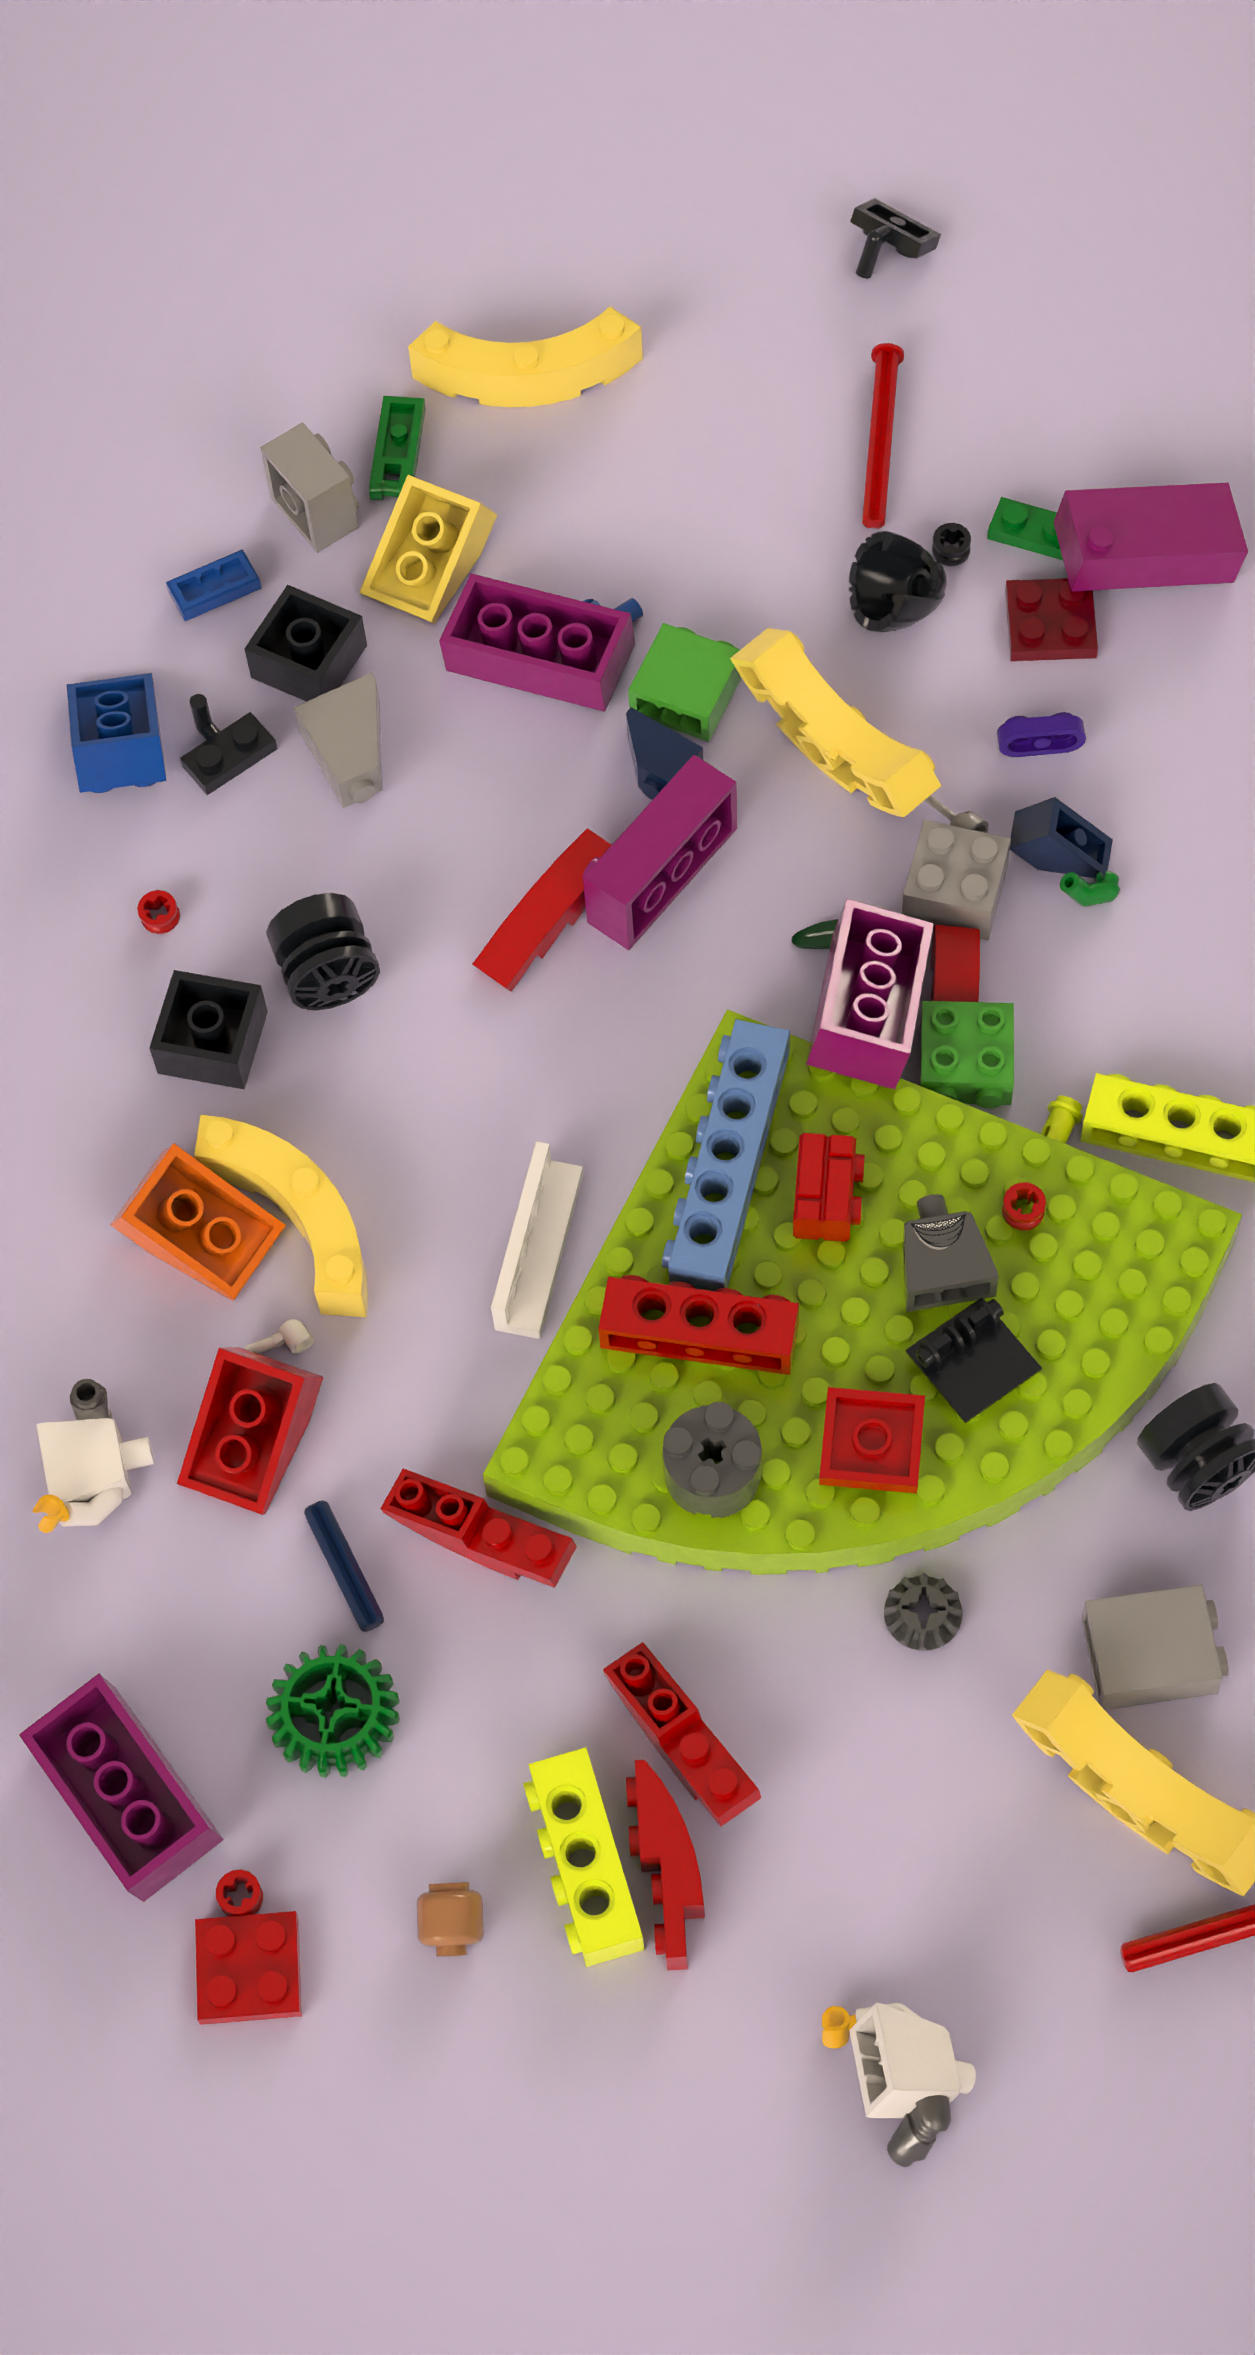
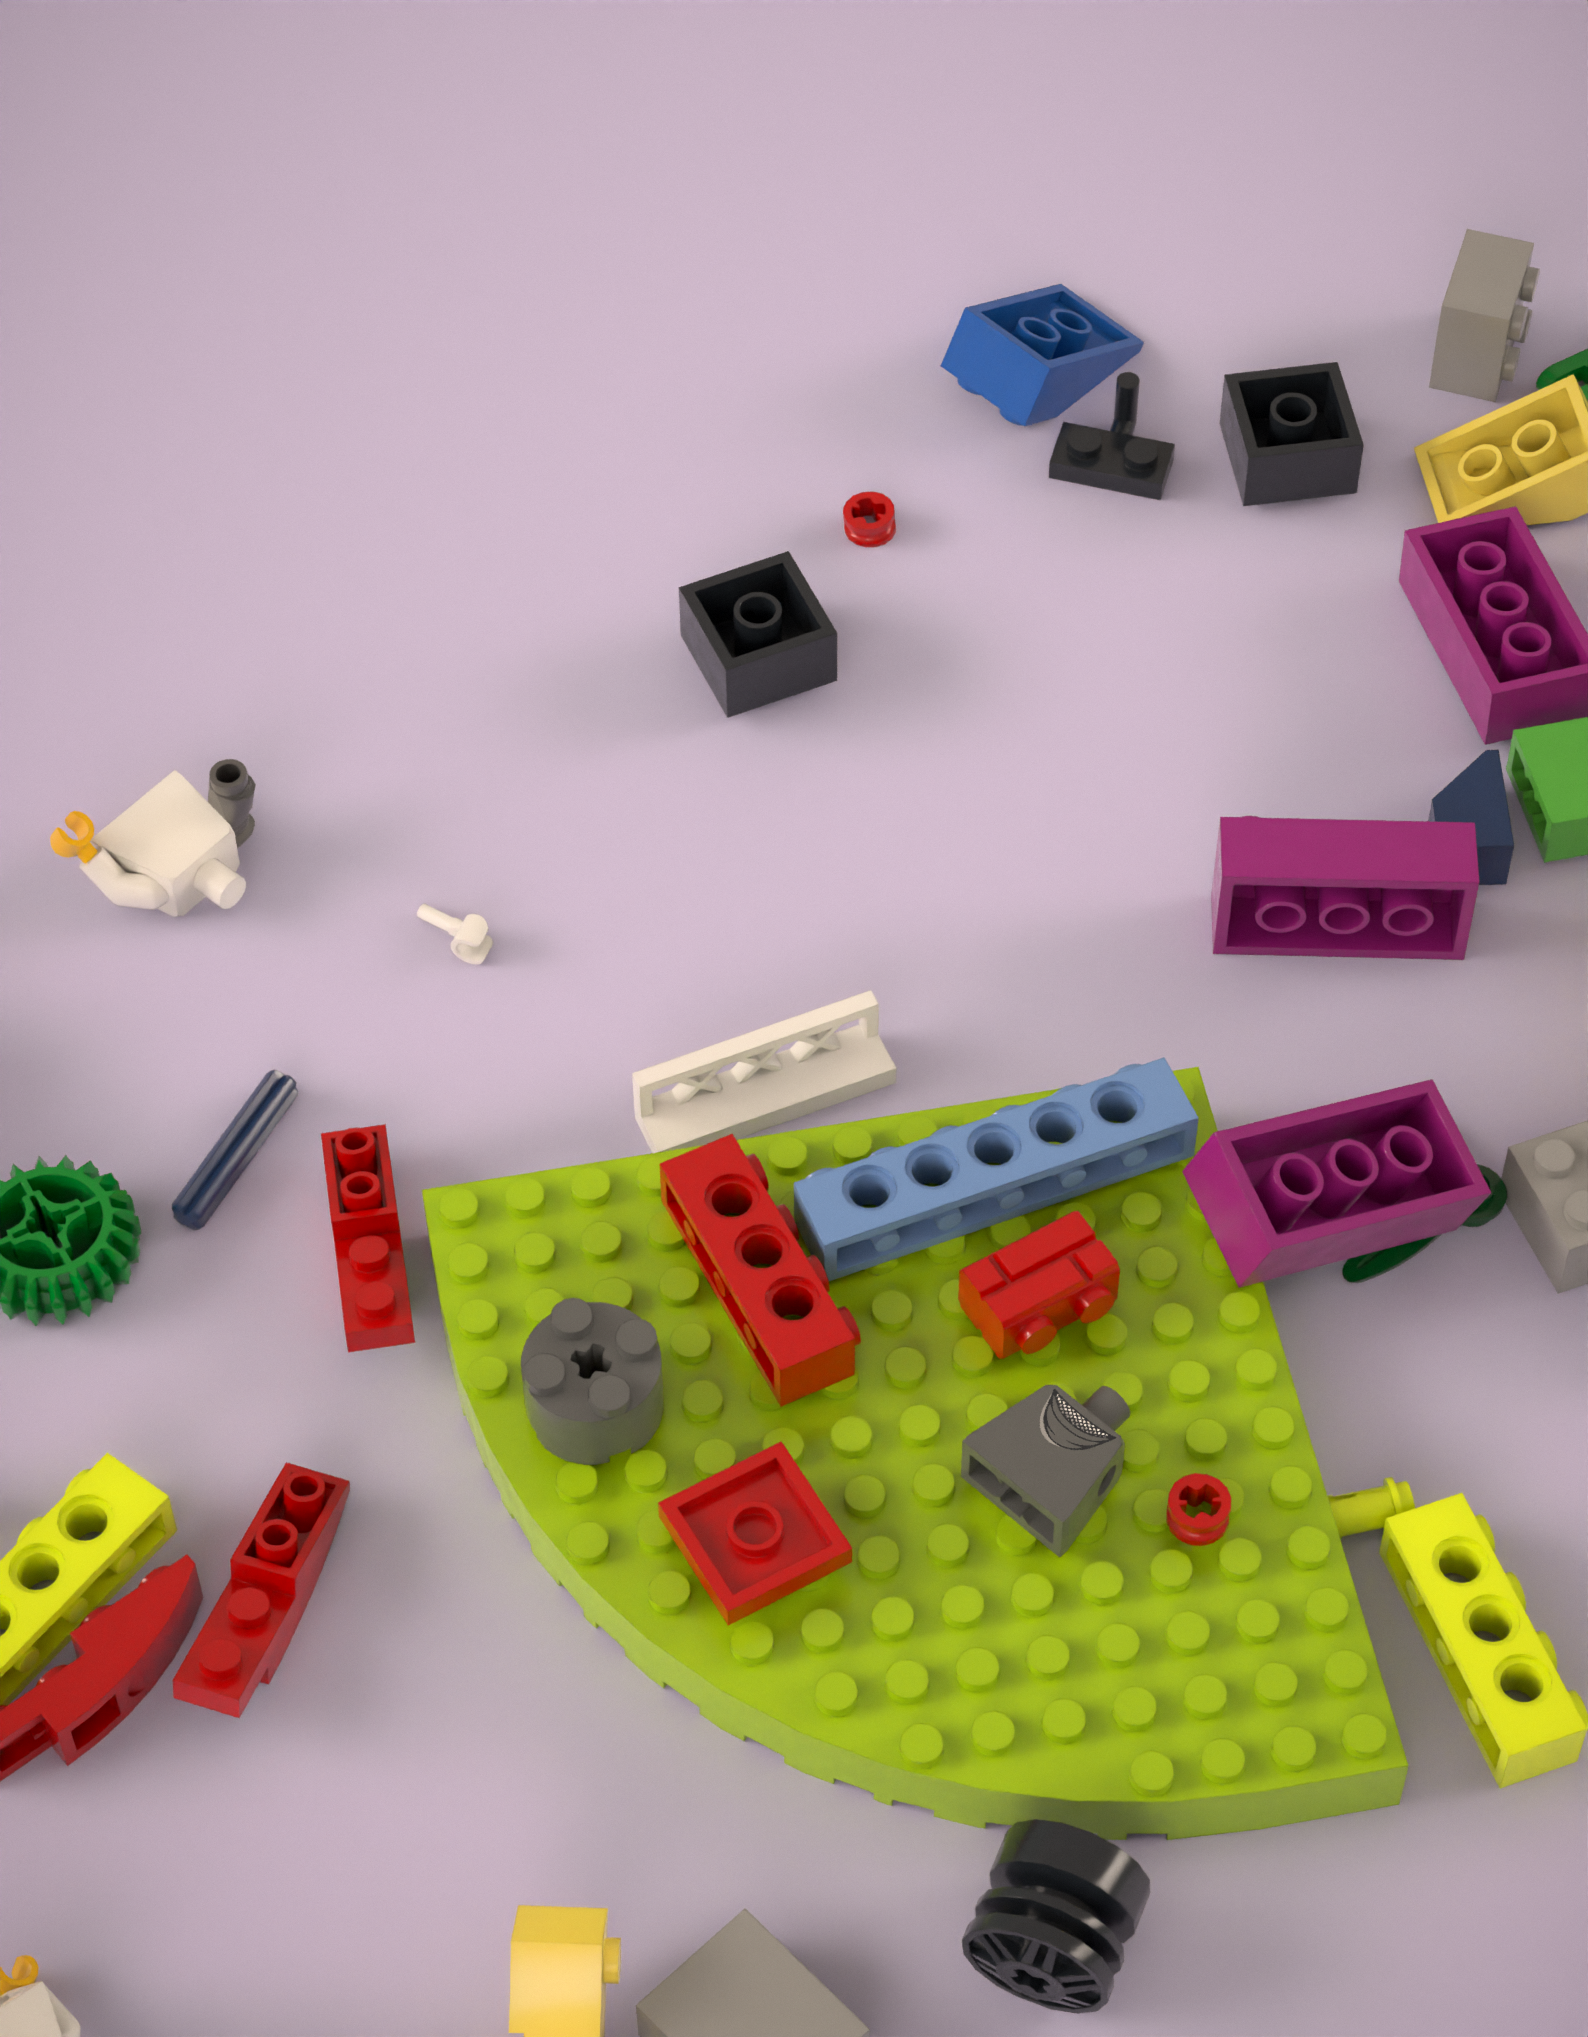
camera: 50 degrees right, 10 degrees down
(198, 1223) = (528, 767): orange slope -> none
(213, 585) = (1294, 323): blue plate -> none
(248, 1428) = (329, 958): red slope -> none
(305, 1195) = (622, 873): light yellow brick -> none
(322, 951) = (934, 667): black wheel -> none
(346, 738) = (1223, 541): light grey slope -> none
(541, 914) = (1154, 836): red slope -> none
(906, 1625) = (605, 1782): dark grey gear -> none
(955, 964) = (1474, 1274): red slope -> none
(968, 1051) = (1376, 1352): bright green brick -> none
(974, 1359) = (949, 1578): black hinge -> none

